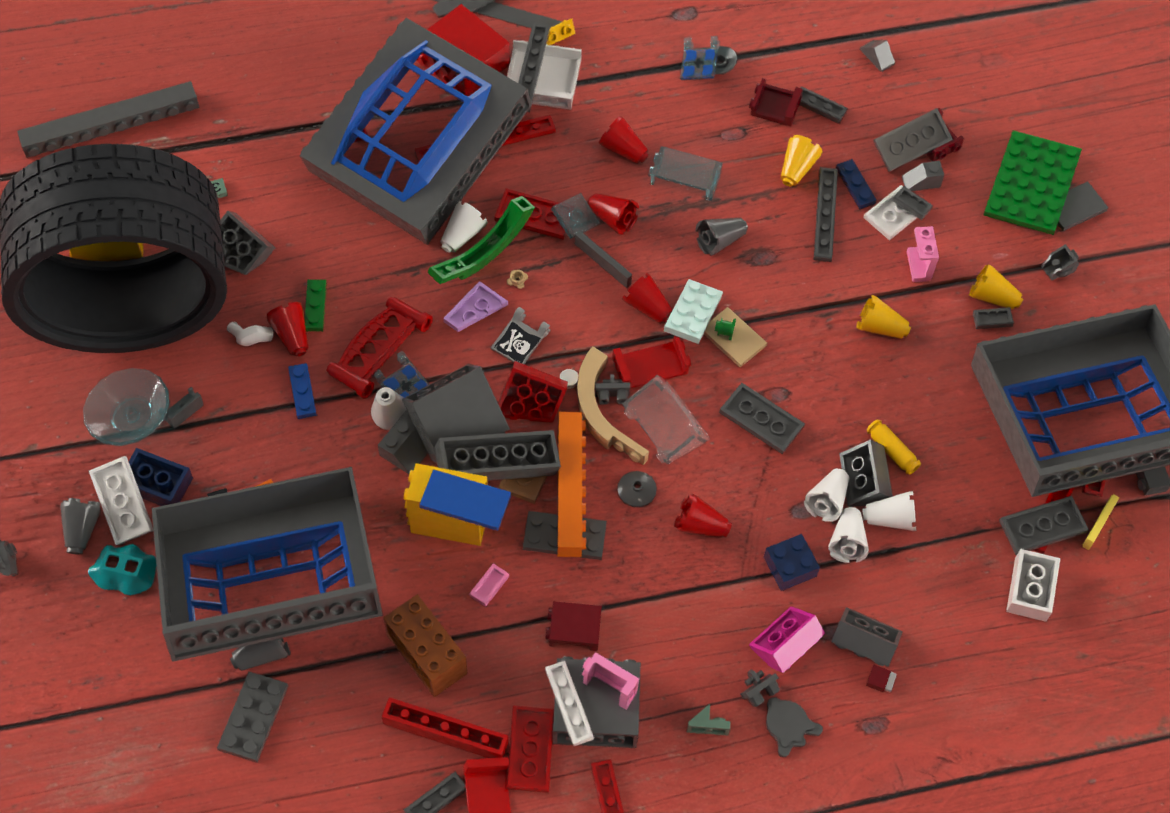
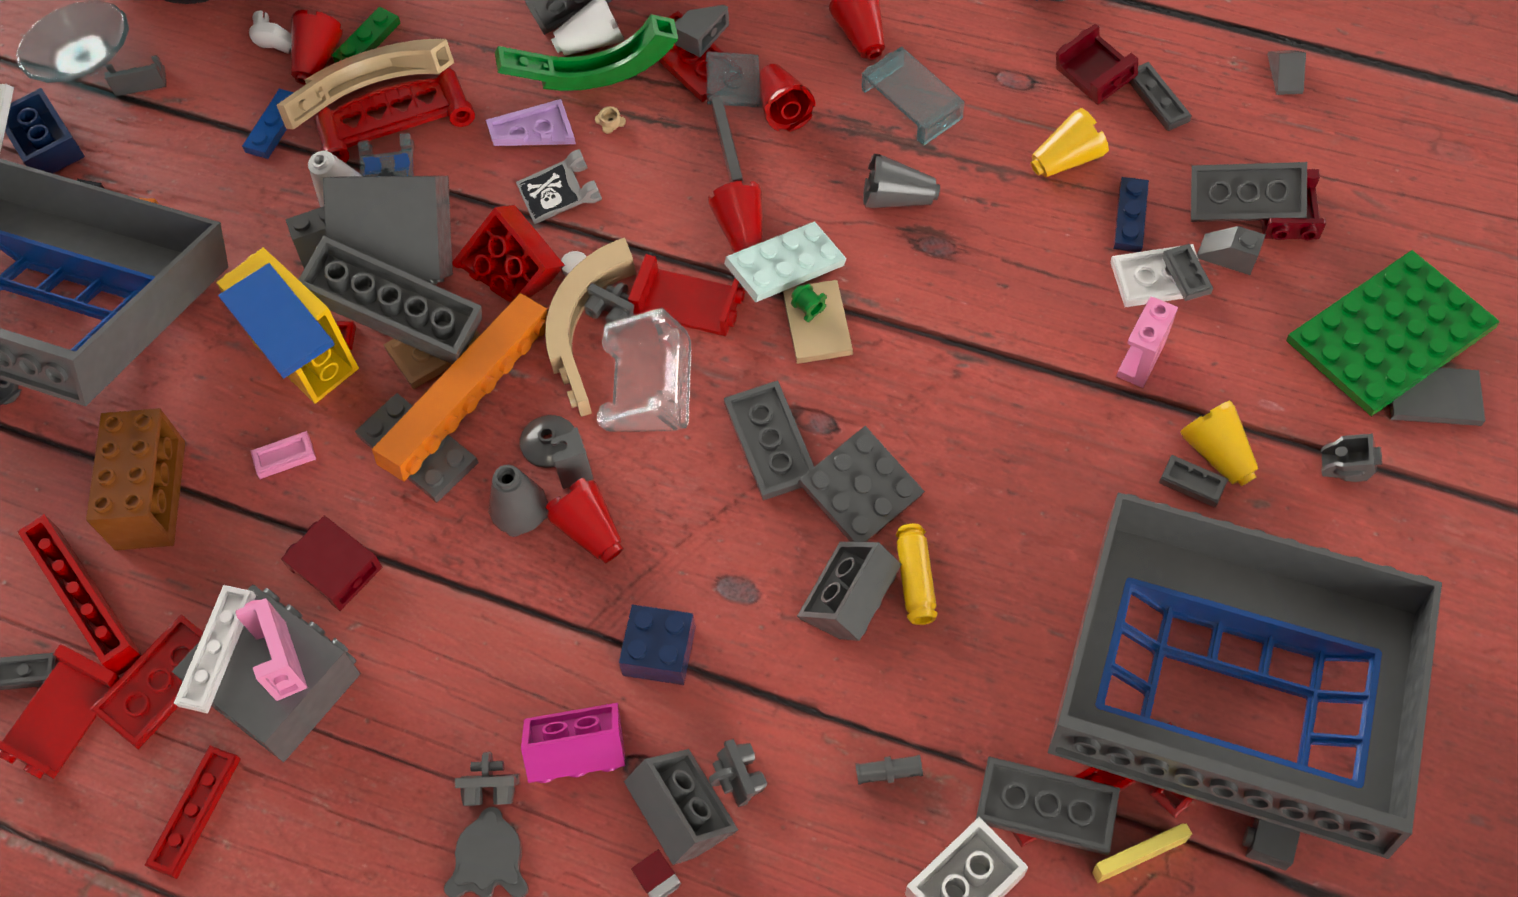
camera: 40 degrees right, 0 degrees up
(341, 321) = (363, 69): none -> tan arch
(534, 191) = (701, 28): none -> dark grey slope
(652, 532) = (516, 501): none -> dark grey cone
(670, 488) = (573, 462): none -> dark grey hinge
(702, 724) = (383, 782): sand green slope -> none
(825, 214) = (1059, 232): dark grey tile -> none
(828, 496) = (776, 585): white cone -> none
(830, 416) = (861, 486): none -> dark grey plate
(849, 537) = (759, 655): white cone -> none
(882, 319) = (1027, 399): yellow cone -> none
(882, 603) = (733, 775): none -> dark grey hips
(892, 512) = (846, 660): white cone -> none
(954, 555) = (889, 769): none -> dark grey pin

